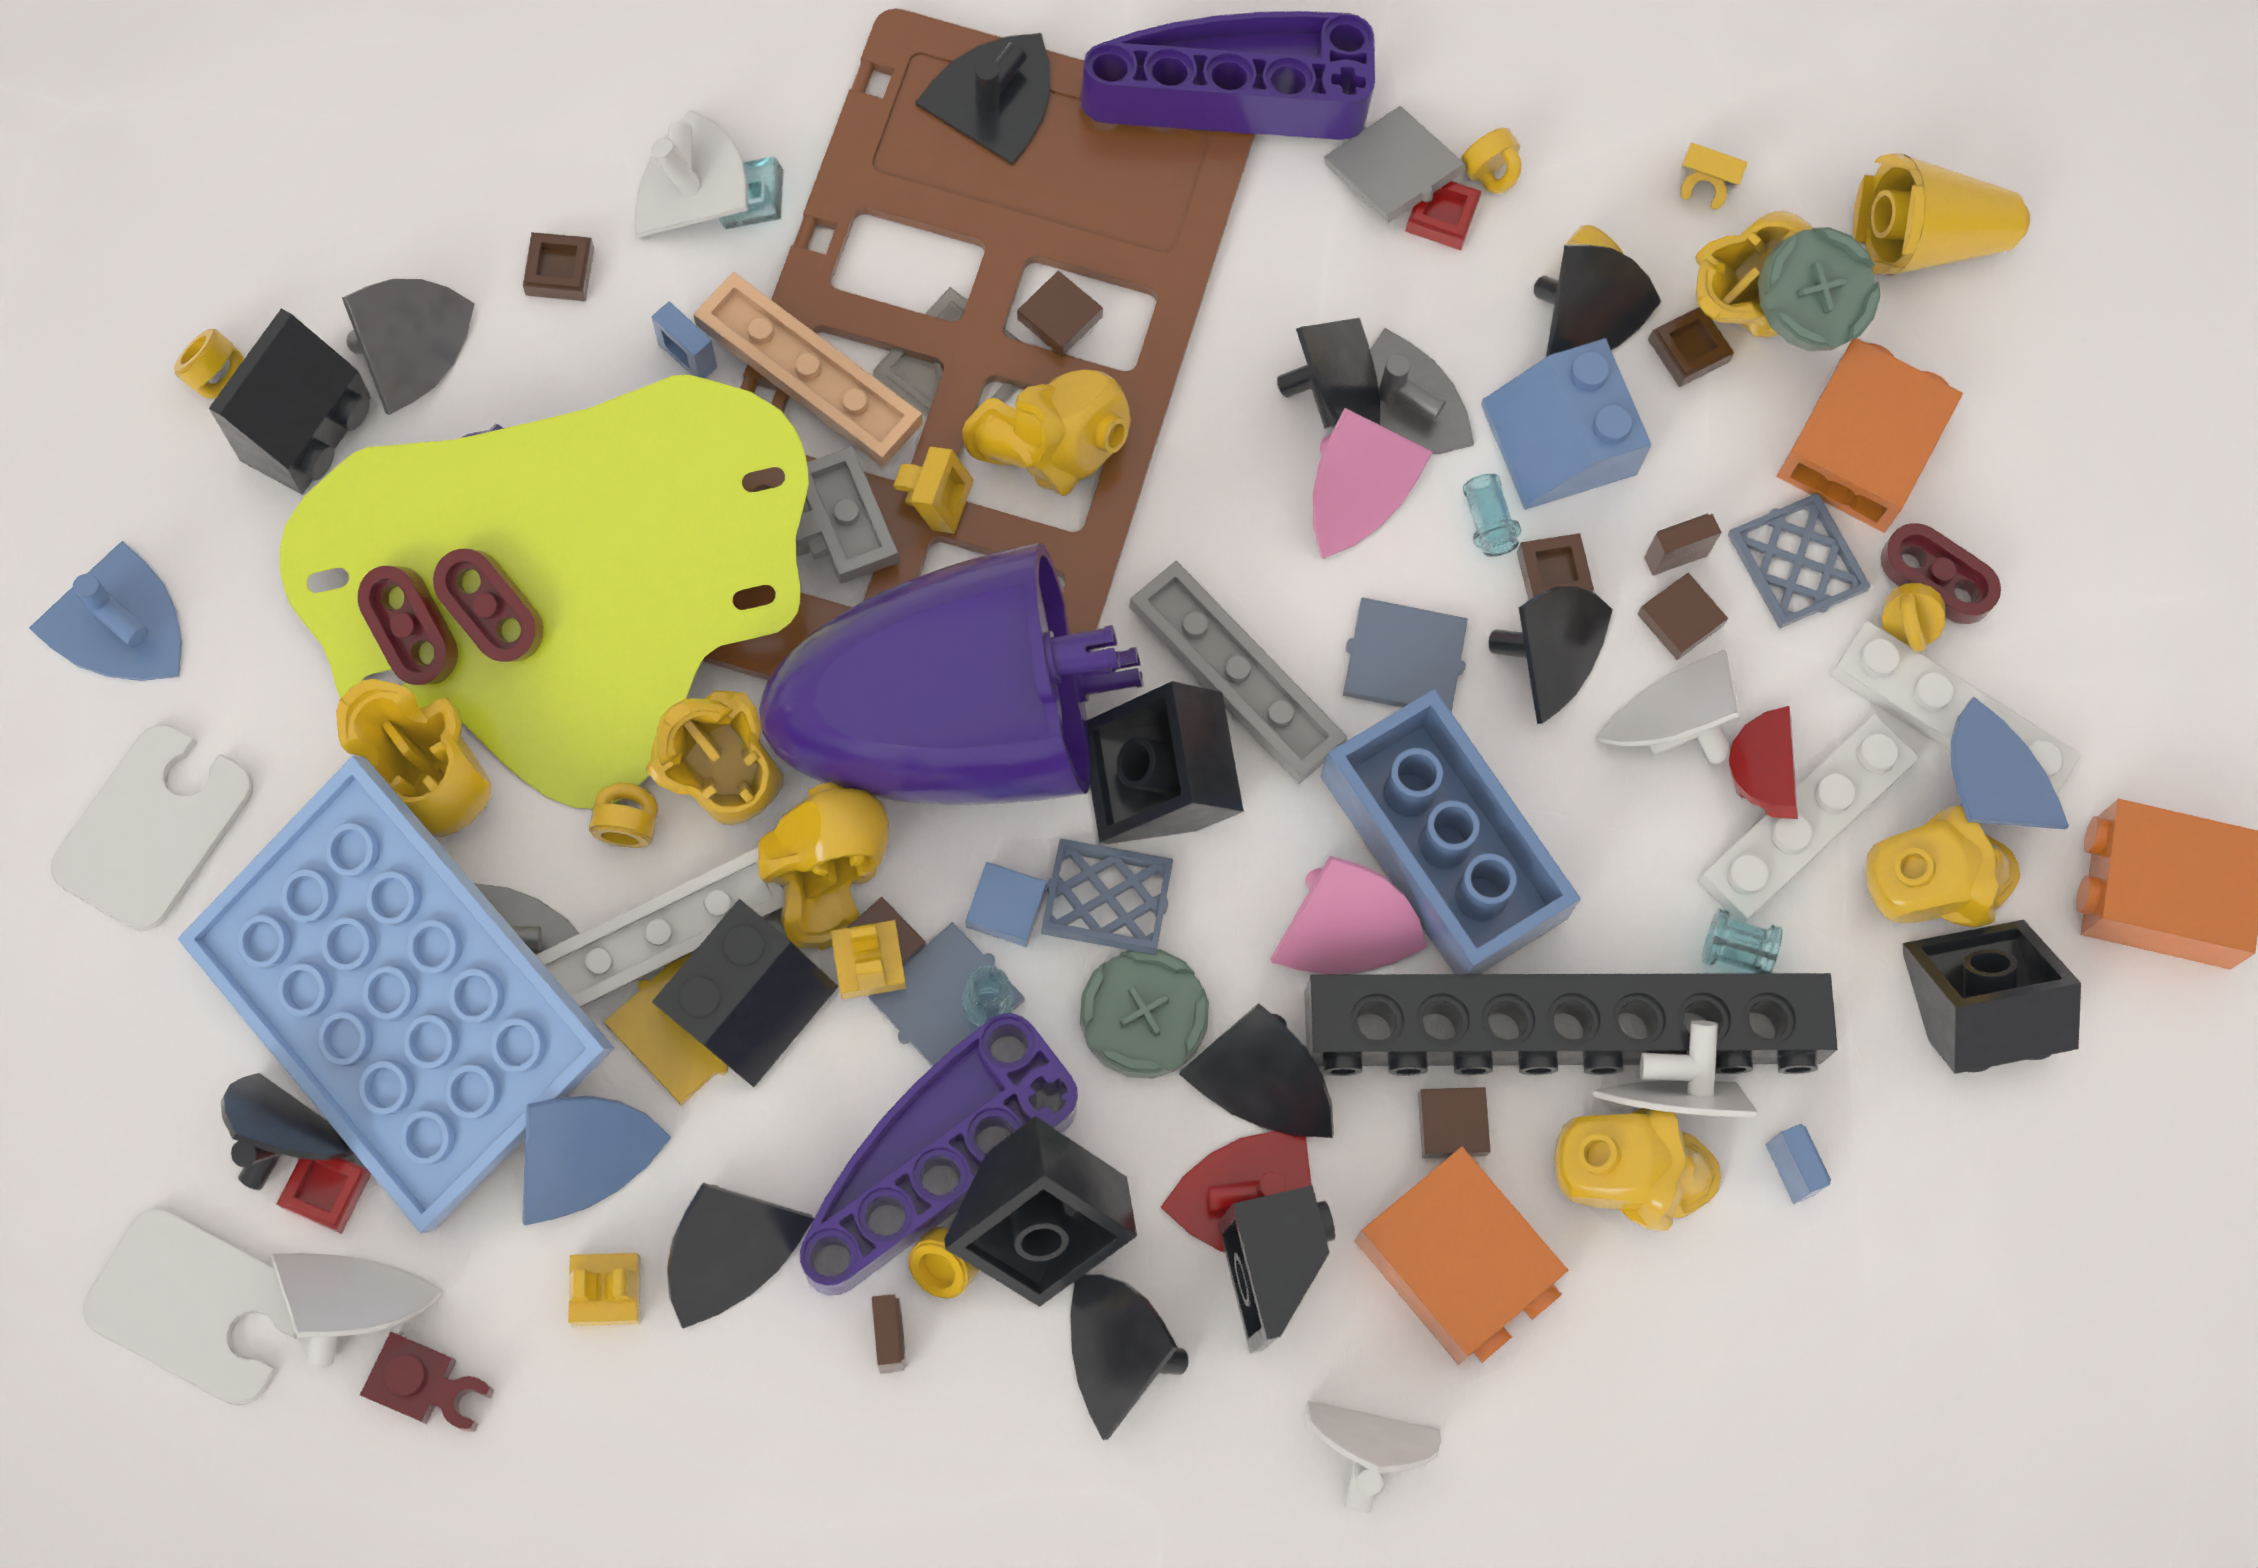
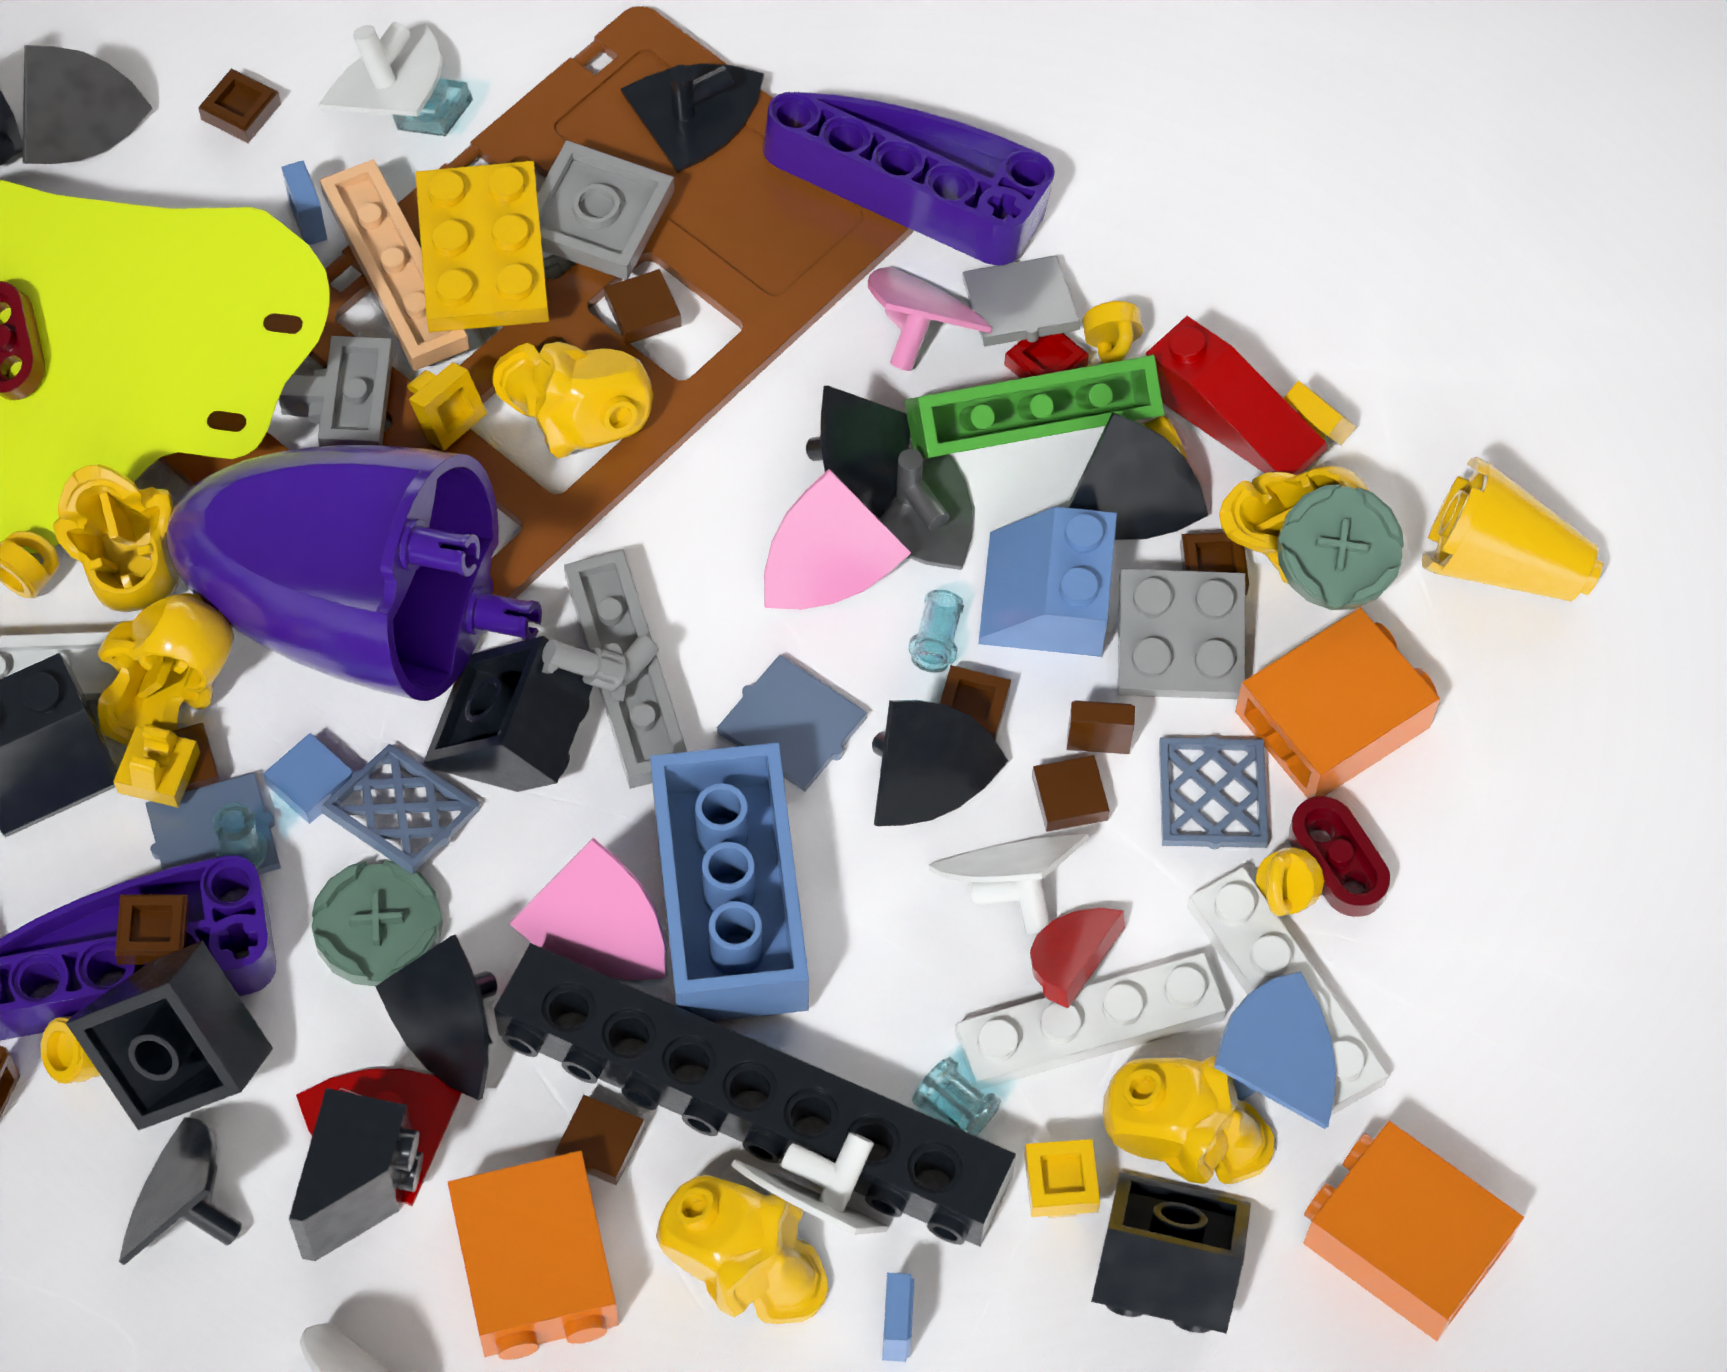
camera: 30 degrees right, 10 degrees down
(889, 318) = (481, 246): none -> yellow plate
(966, 1120) = (150, 927): none -> reddish brown tile
(968, 235) = (600, 209): none -> light grey plate
(1230, 685) = (602, 667): none -> light grey piece
(1312, 210) = (911, 307): none -> bright pink shield
(1472, 266) = (1033, 407): none -> bright green brick
(1638, 186) = (1231, 401): none -> red slope
(1704, 425) = (1181, 634): none -> light grey plate
(1872, 974) = (1061, 1178): none -> yellow tile

